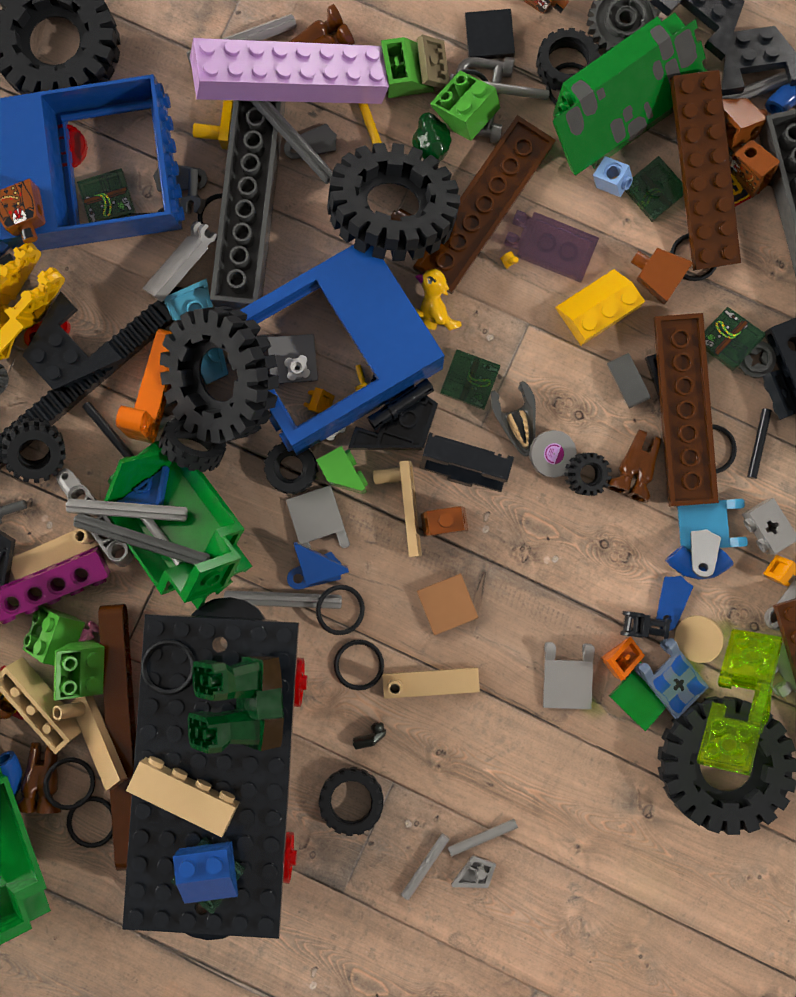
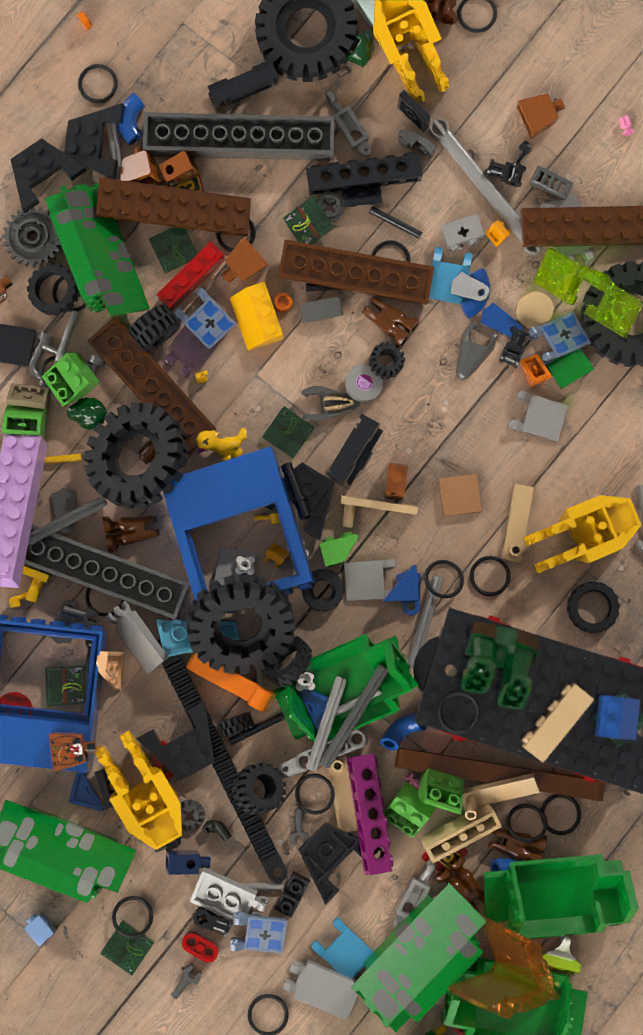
camera: 80 degrees left, 0 degrees up
(29, 508) = (331, 790): none -> black tyre
(102, 403) = (236, 724): none -> black tyre
(136, 239) = (111, 667): none -> light nougat wing
(143, 599) = (399, 730): none -> blue cylinder
(169, 478) = (305, 677): none -> white plate
(189, 114) = (14, 601): none -> yellow hand
(304, 224) = (131, 530): none -> reddish brown piece
(372, 739) = (550, 581): pearl dark grey arm -> none
(449, 783) = (597, 527): none -> yellow connector
(553, 185) = (154, 327): none -> black tyre
(577, 250) = (208, 322): none -> sand blue flag
(607, 170) = (150, 281): light blue brick -> none
(623, 576) = (471, 354): none -> dark grey animal
(625, 334) = (283, 302): none -> orange tile
(626, 215) = (191, 276): none -> red brick

